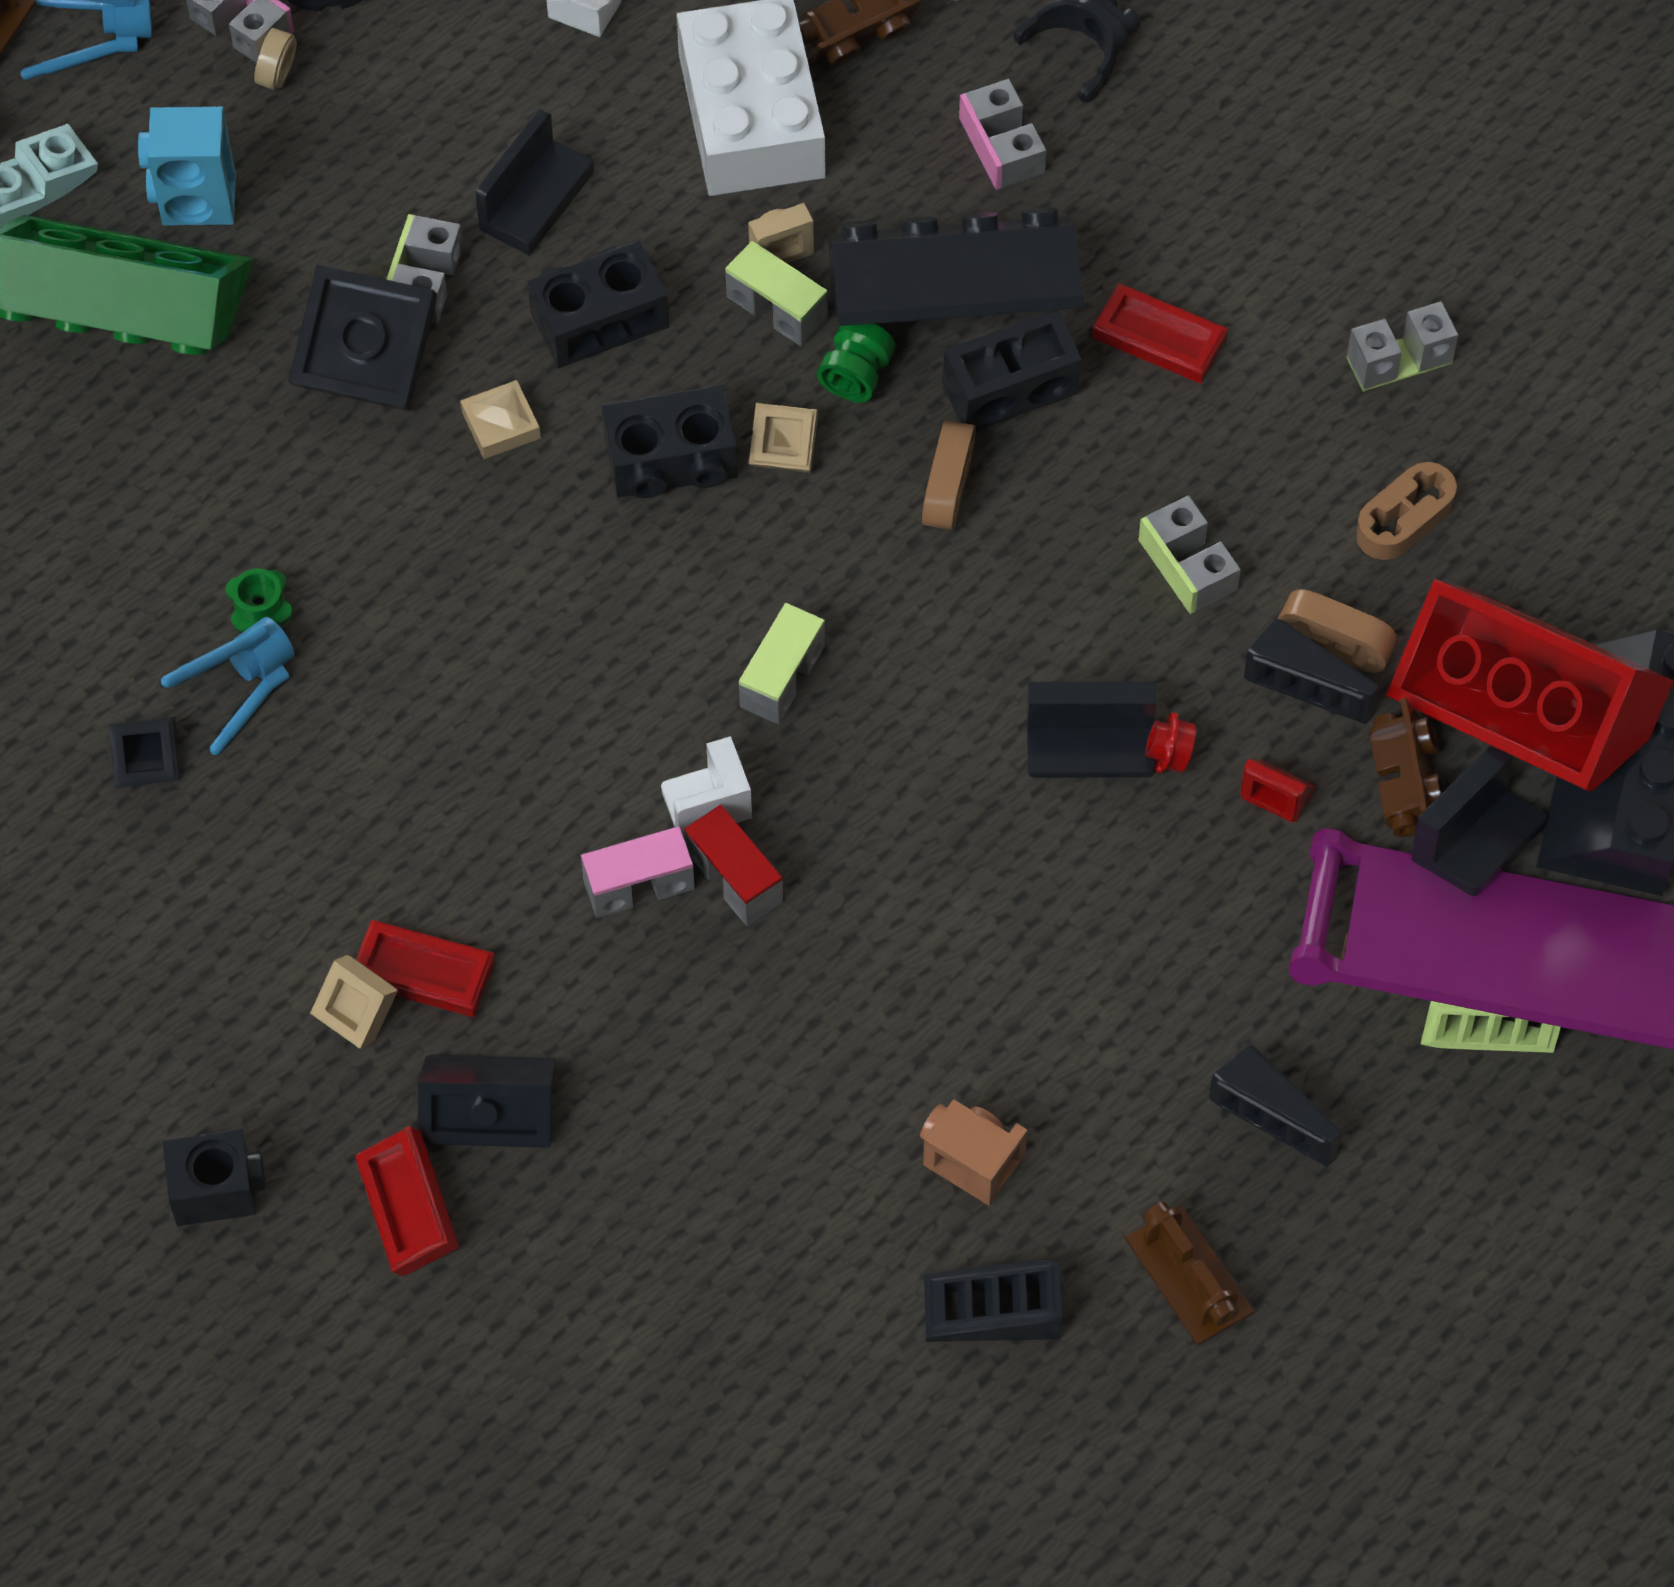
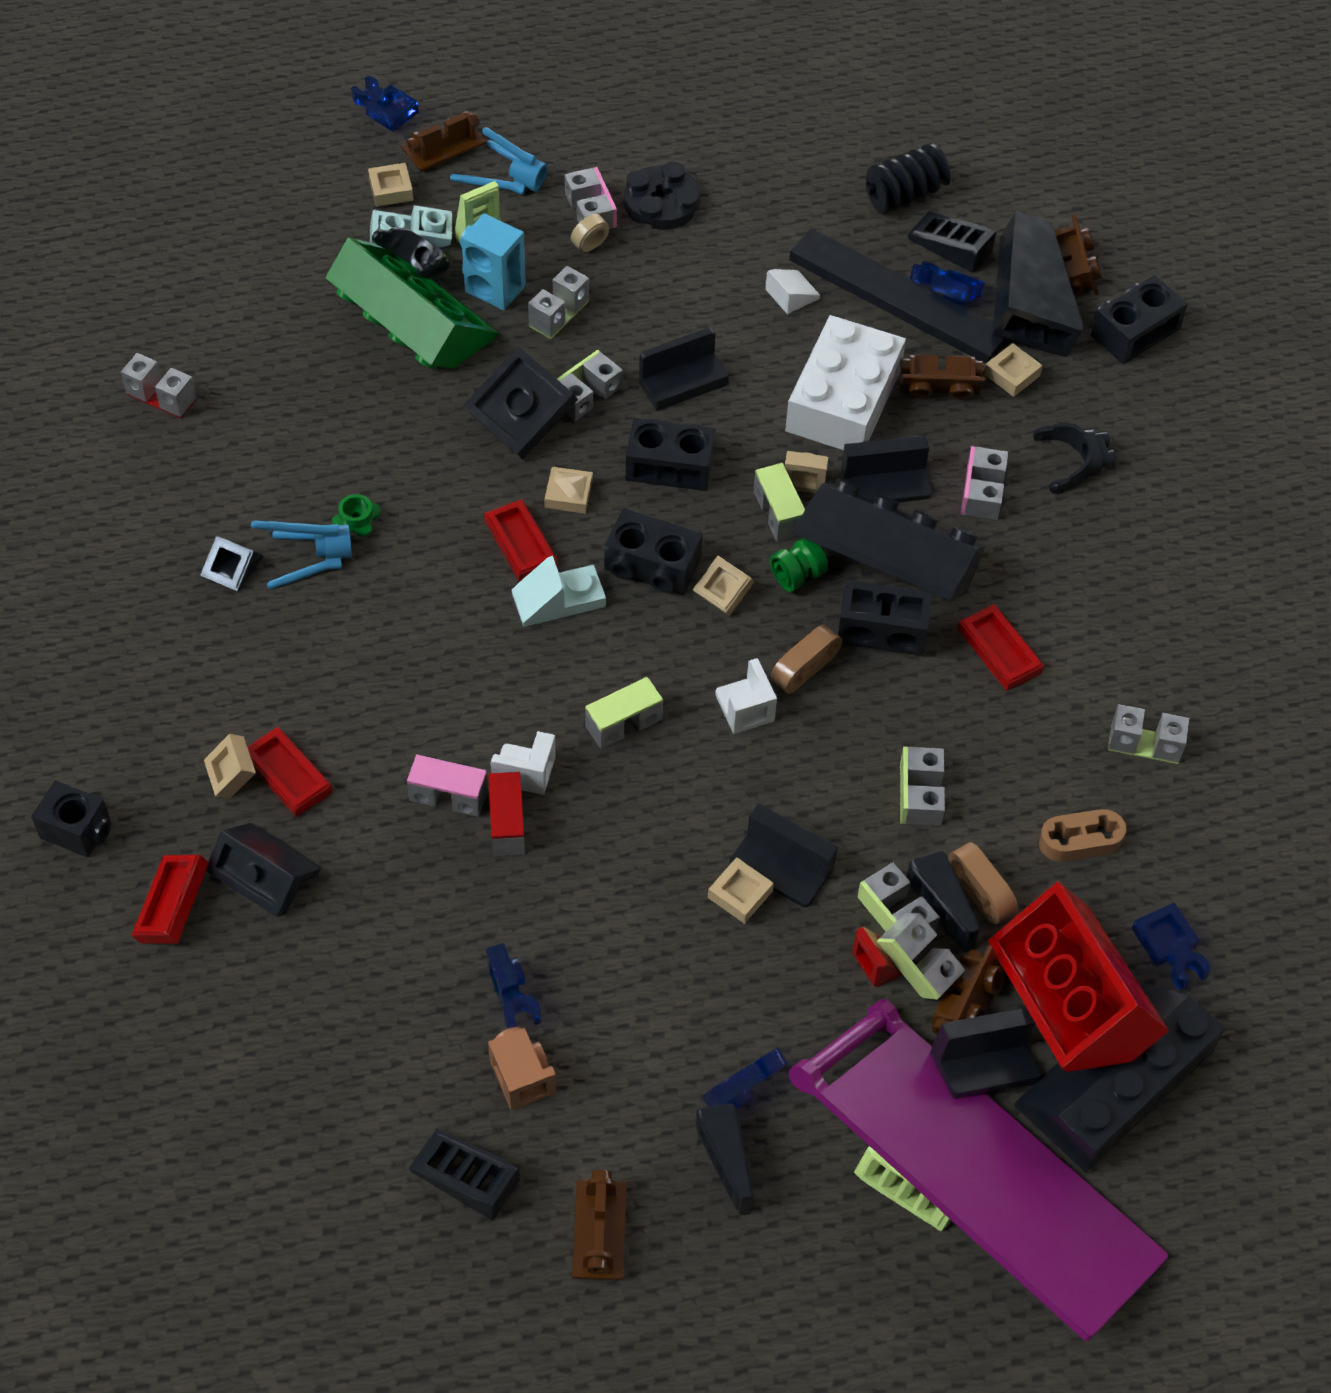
camera: 30 degrees right, 5 degrees down
(68, 205) = (413, 249): none -> black helmet
(121, 117) = (474, 204): none -> yellowish green slope
(306, 182) = (552, 312): none -> flat silver piece
(488, 517) = (518, 538): none -> red tile
(586, 560) = (554, 595): none -> light aqua slope
(876, 179) = (889, 468): none -> black panel
(884, 1062) = (506, 978): none -> clear blue plate
(914, 562) = (748, 701): none -> white panel
(1070, 798) = (740, 890): none -> tan plate
(1171, 743) = (826, 892): red plate -> none
(1231, 1018) = (737, 1087): none -> clear blue plate
(1286, 729) = (883, 891): none -> flat silver piece
(1334, 764) = (905, 941): none -> flat silver piece
(1584, 577) = (1171, 939): none -> clear blue plate

